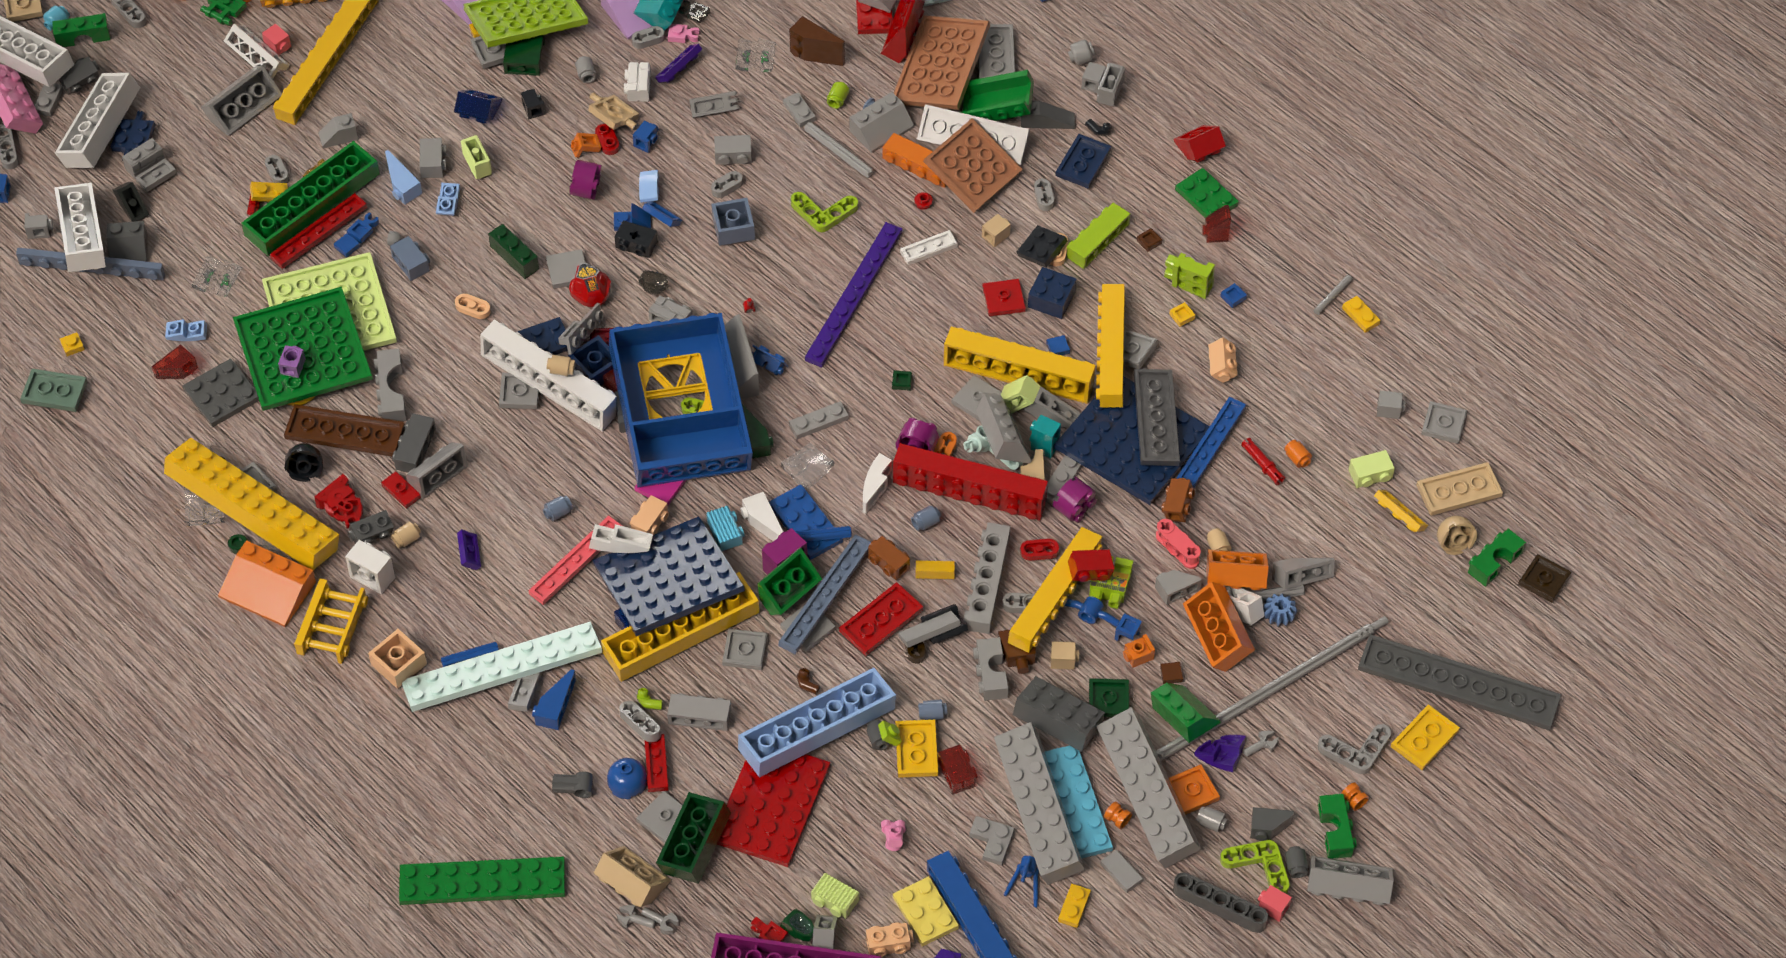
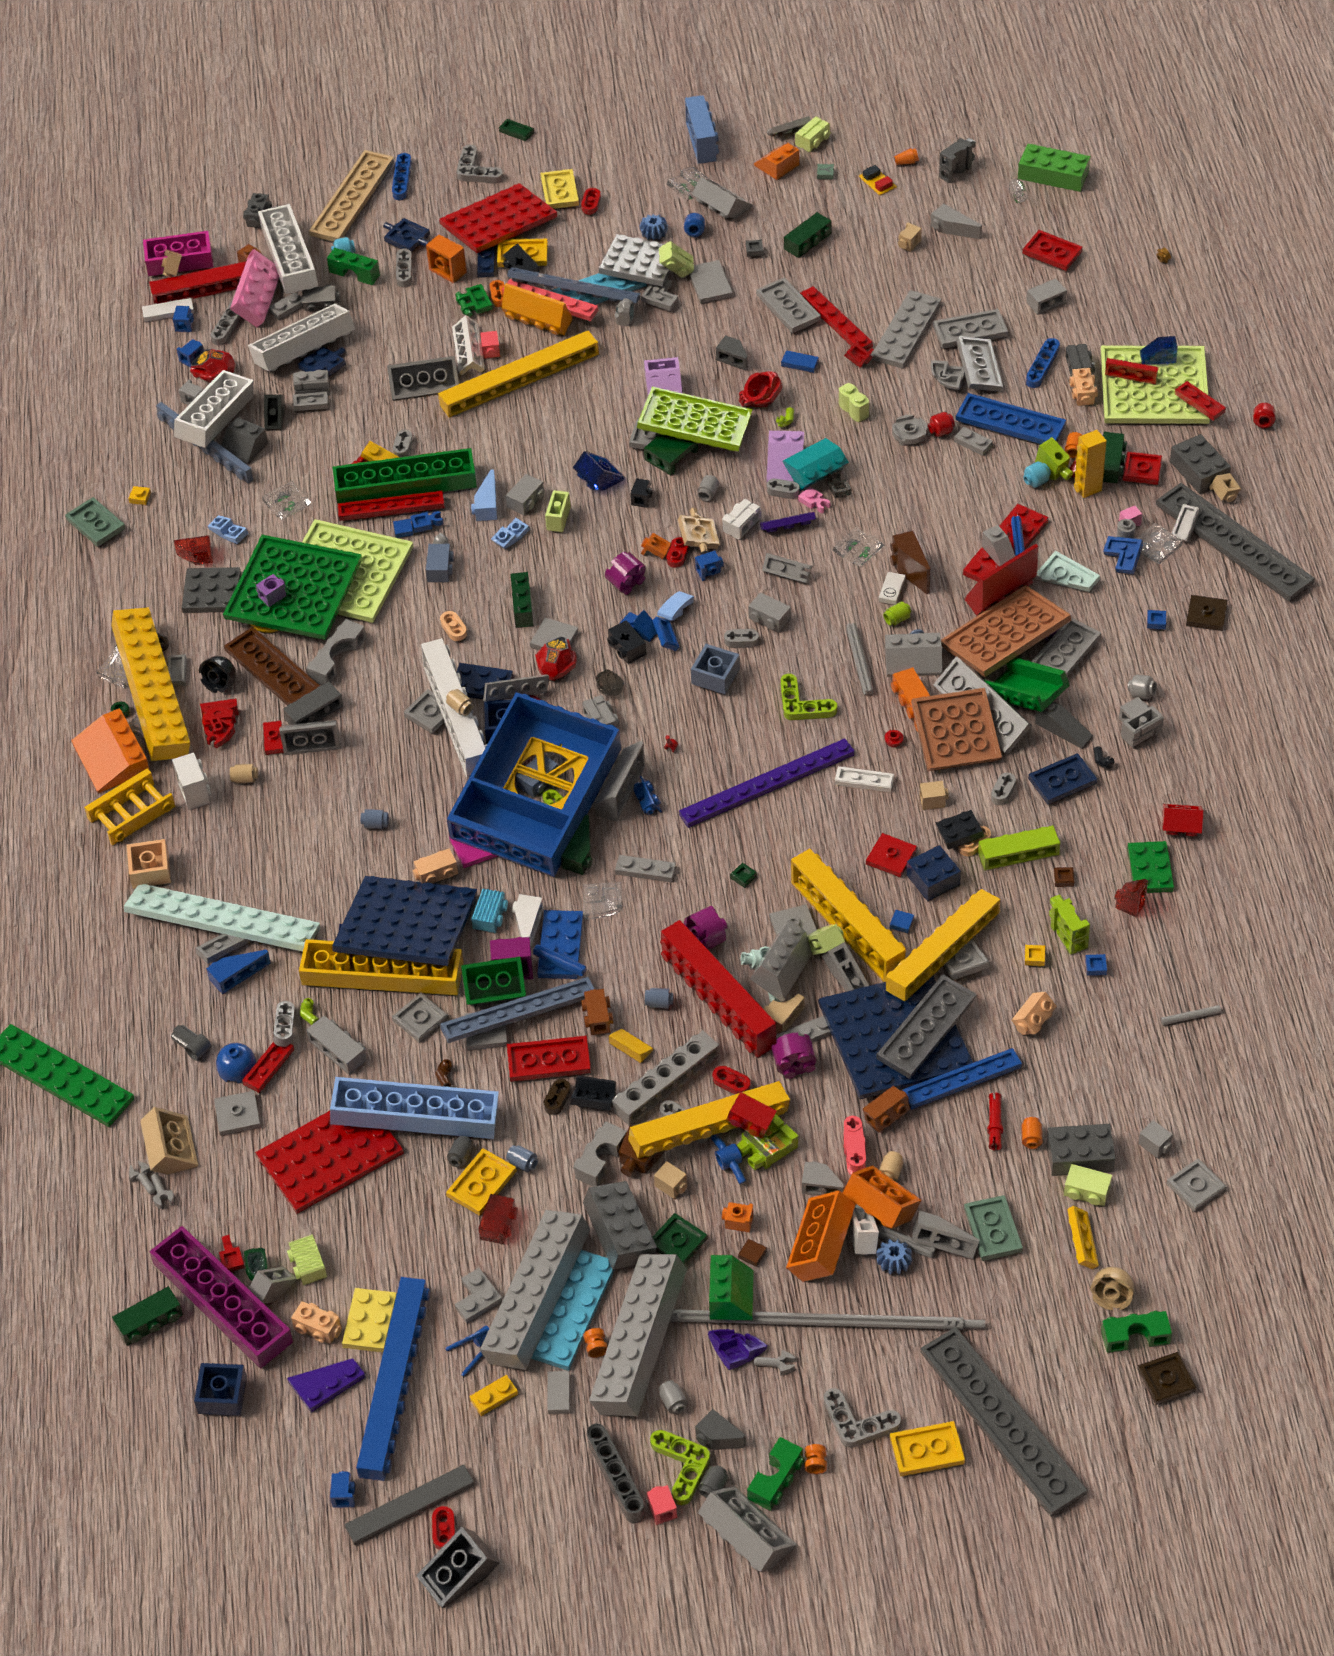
camera: 40 degrees right, 5 degrees down
(32, 189) = (214, 362): none -> red helmet
(338, 131) = (476, 437): light grey slope -> none
(371, 528) = (220, 752): dark grey brick -> none
(468, 654) = (208, 893): blue axle -> none
(469, 549) = (279, 812): dark purple plate -> none
(567, 567) = (352, 868): coral plate -> none
(620, 539) = (393, 869): white slope -> none
(666, 404) = (530, 785): none -> sand blue brick
(693, 837) = (236, 1140): dark green brick -> none
(799, 109) = (856, 609): light grey plate -> none
(812, 76) = (892, 588): none -> white tile
(876, 481) = (640, 945): white slope -> none
(889, 733) = (465, 1153): lime plate -> none
(893, 833) = (398, 1239): bright pink plate -> none
(929, 629) = (575, 1089): light grey tile -> none
(949, 449) = (728, 951): orange beam -> none
(1044, 435) = (815, 985): teal brick -> none
(1128, 627) = (744, 1189): blue panel -> none
(1194, 789) = (679, 1362): orange plate -> none
(1330, 541) = (994, 1227): none -> sand green plate
(1343, 442) = (1080, 1145): none -> dark grey brick
(1361, 314) = (1202, 1047): yellow plate -> none
(1459, 488) = (1156, 1251): tan plate -> none

